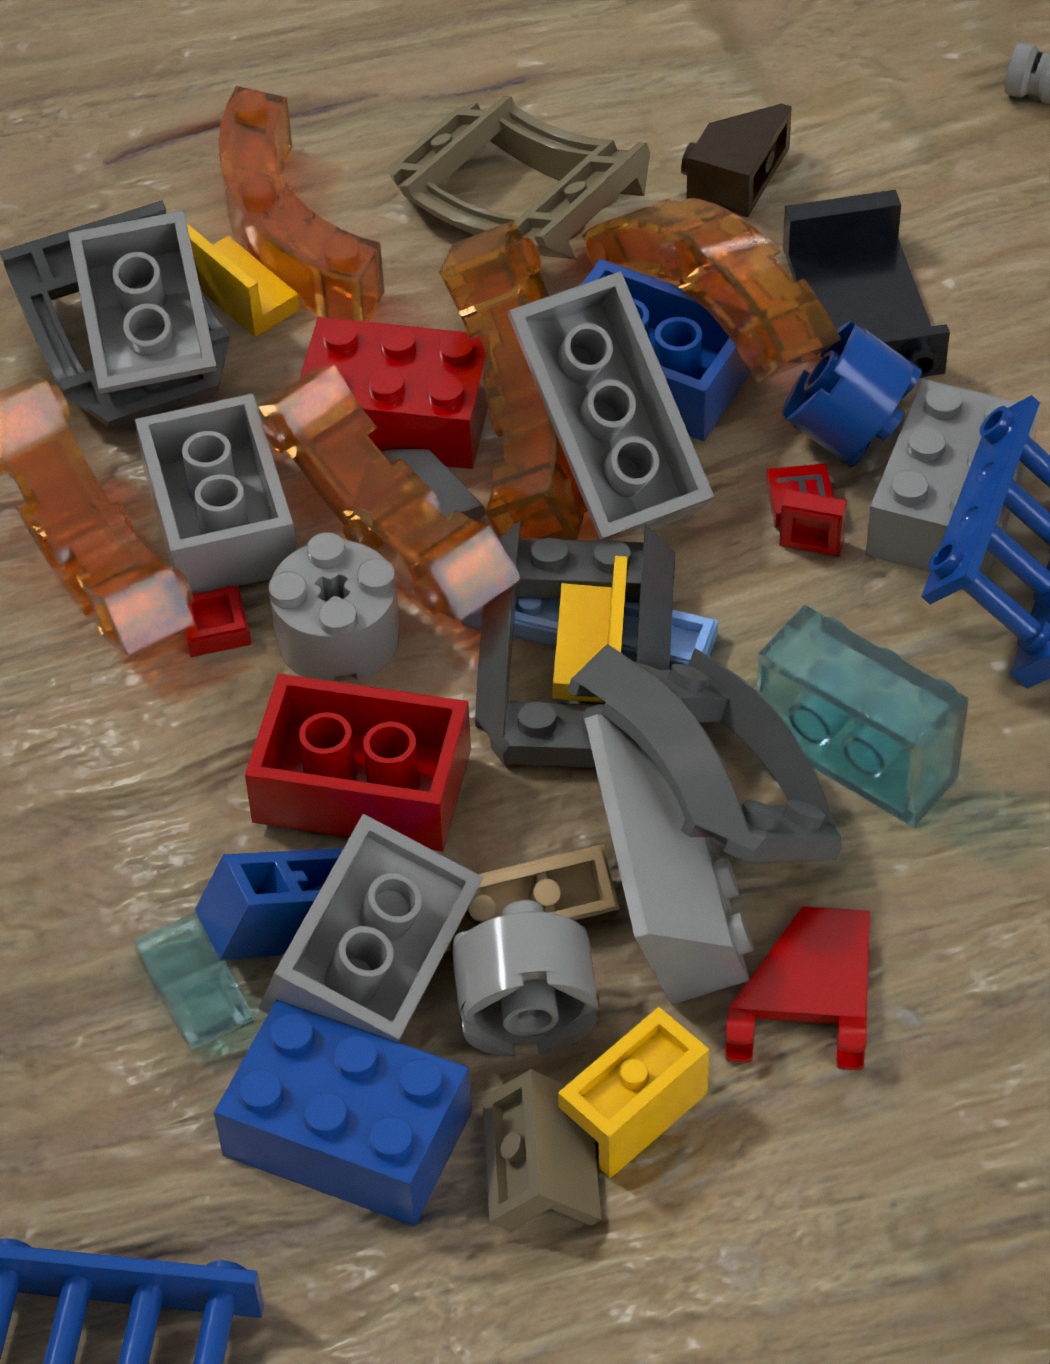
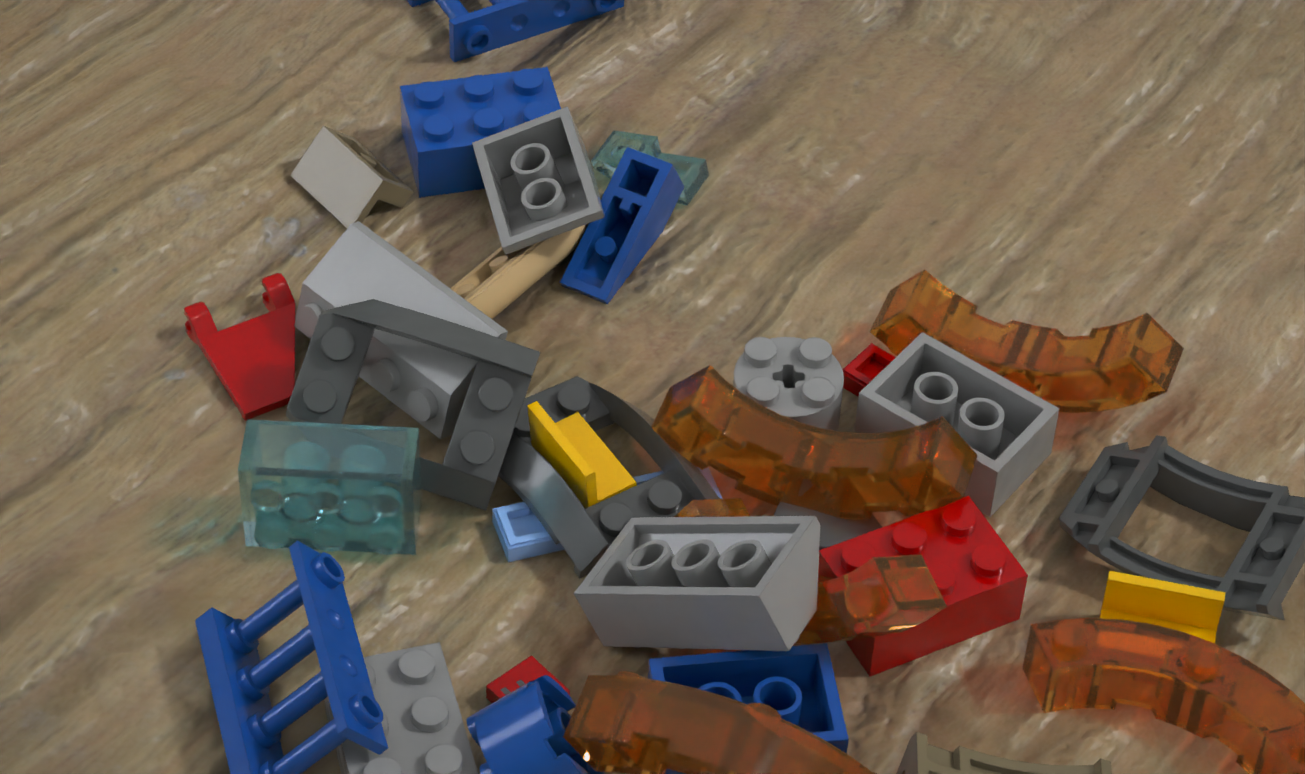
camera: 140 degrees right, 5 degrees down
(142, 302) = (1165, 500): light grey slope -> none
(357, 751) = (662, 302): red brick -> none
(525, 981) = (430, 218): light grey brick -> none
(638, 1088) = (312, 209): yellow panel -> none
(812, 522) = (491, 653): red tile -> none

